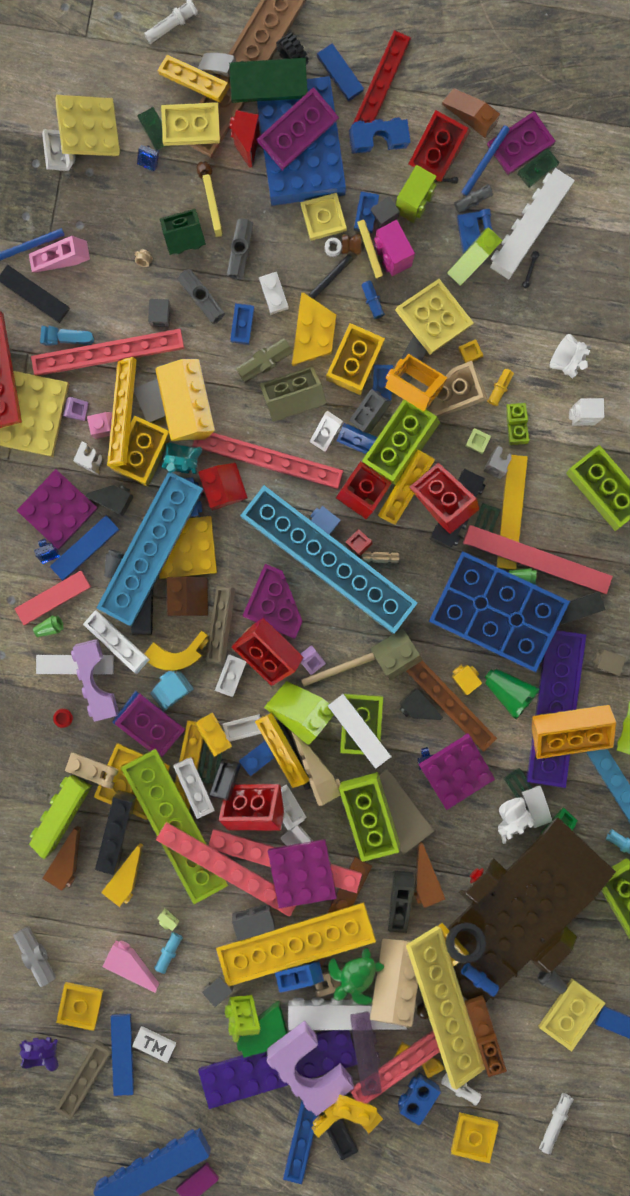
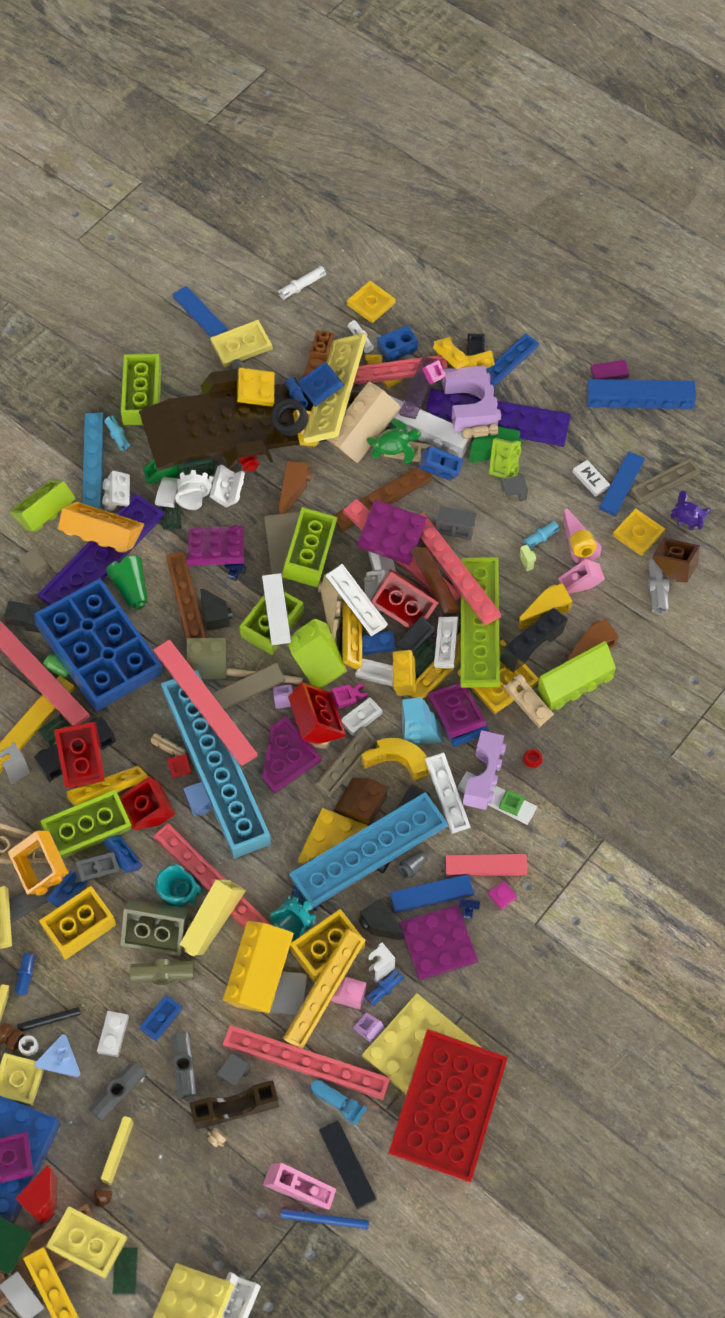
camera: 150 degrees left, 25 degrees down
(26, 578) = (502, 895): none -> dark pink plate
(26, 992) = (677, 559): none -> reddish brown slope
(49, 626) = (503, 840): bright green cone -> none
(57, 664) = (511, 802): none -> bright green tile
(83, 436) = (384, 987): none -> blue pin
(108, 925) = (582, 577): none -> bright pink slope
(117, 957) = (582, 543): none -> yellow head
(128, 299) = (220, 1110): none -> dark brown arch
(147, 157) = (150, 1238): clear blue tile -> none
(182, 232) = (162, 1142): dark green slope -> none
(222, 485) = (271, 878): red slope -> none
(235, 844) = (435, 580): none -> reddish brown tile
(248, 425) = (211, 916): none -> light yellow slope
(255, 688) = (346, 696): none -> dark pink plate
(279, 1033) = (480, 431): none -> tan axle
(291, 778) = (356, 599): none -> white plate
(293, 433) = (177, 886): none -> teal hair
(296, 944) = (429, 487): yellow plate -> none
(302, 250) = (59, 1058): none -> light blue piece
(313, 331) = (99, 976): yellow wing -> none
(326, 431) = (143, 875): white slope -> none
(345, 647) = (249, 686): none -> dark tan tile
(357, 1076) = (434, 372): none -> plate
(367, 604) = (205, 703): none -> coral tile
(401, 901) = (323, 480): pearl dark grey slope -> none
(461, 1001) = (320, 384): none -> blue plate
(466, 678) = (160, 611): yellow brick -> none
(478, 441) = (17, 796): yellowish green plate -> none
(486, 842) = (226, 486): none -> white bracket
(520, 961) = (255, 387): none -> yellow plate
(525, 841) = (199, 469): none -> clear green tile
(584, 779) = (116, 490): none -> white bracket

